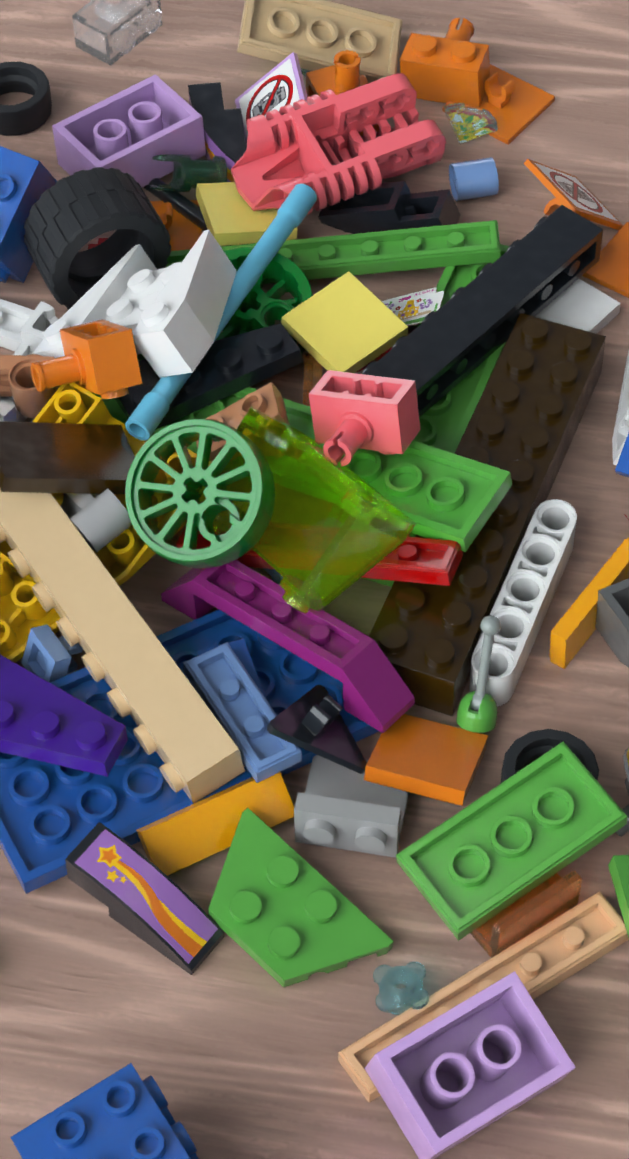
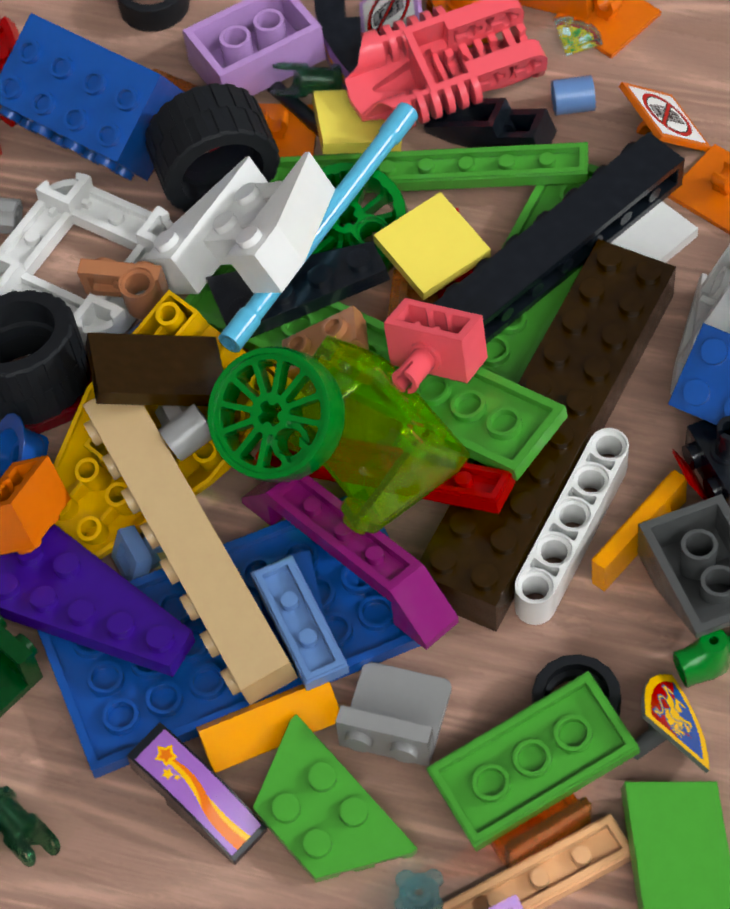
camera: 10 degrees right, 5 degrees up
(96, 357) = (197, 274): orange brick -> none
(318, 727) = (367, 642): black piece -> none
(415, 306) = (500, 224): white sticker -> none
(427, 759) = (466, 675): orange tile -> none
(477, 708) = (517, 629): hinge -> none

